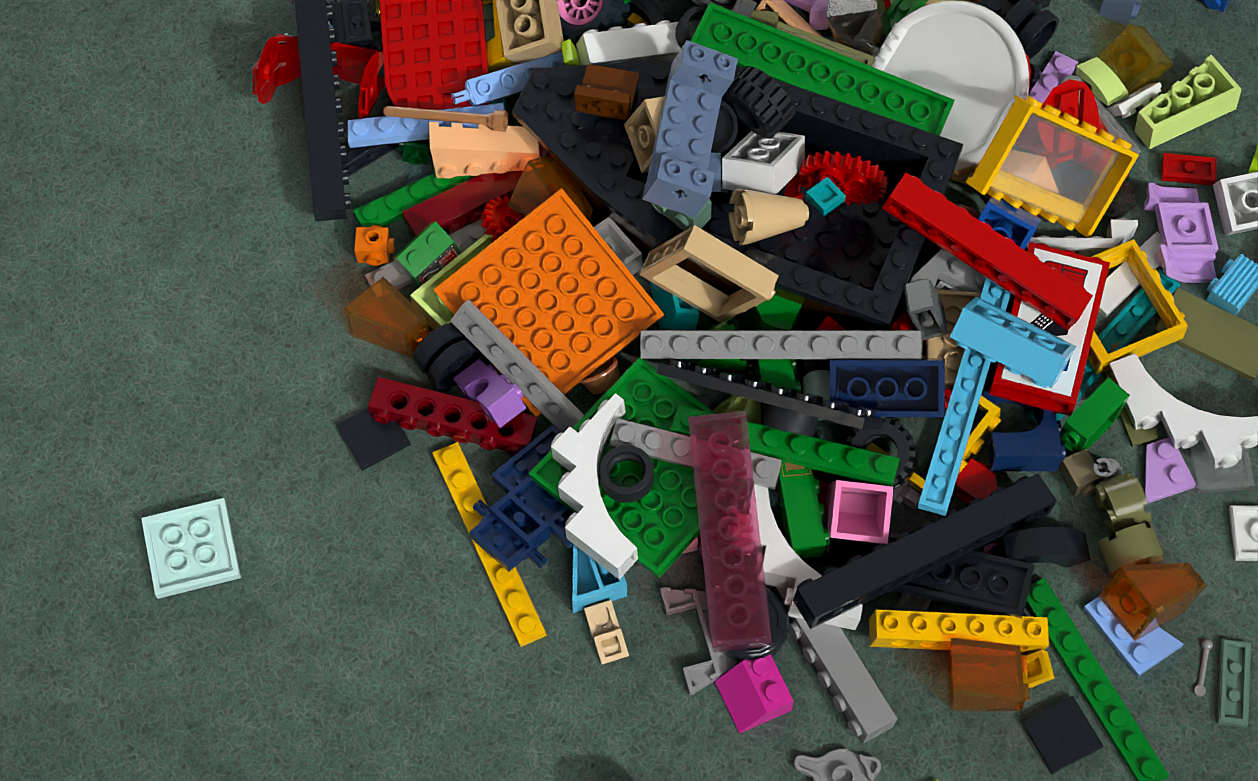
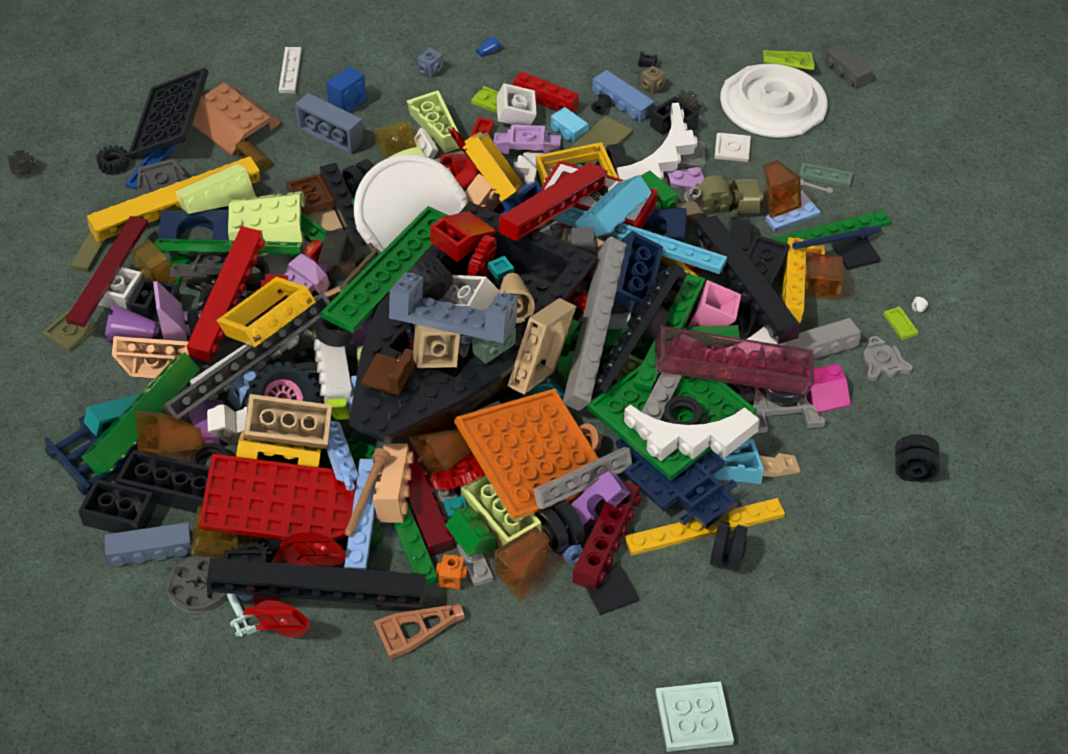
camera: 85 degrees left, 15 degrees down
(281, 199) = (393, 638): none -> nougat plate
(421, 380) = (572, 553): none -> medium blue plate
(441, 565) = (733, 546): none -> black wheel
(467, 233) = (453, 504): none -> teal plate
(878, 134) = (459, 234): none -> red slope
(1099, 740) = (862, 232): none -> dark blue bar
(1166, 355) = (617, 155): none -> black tyre

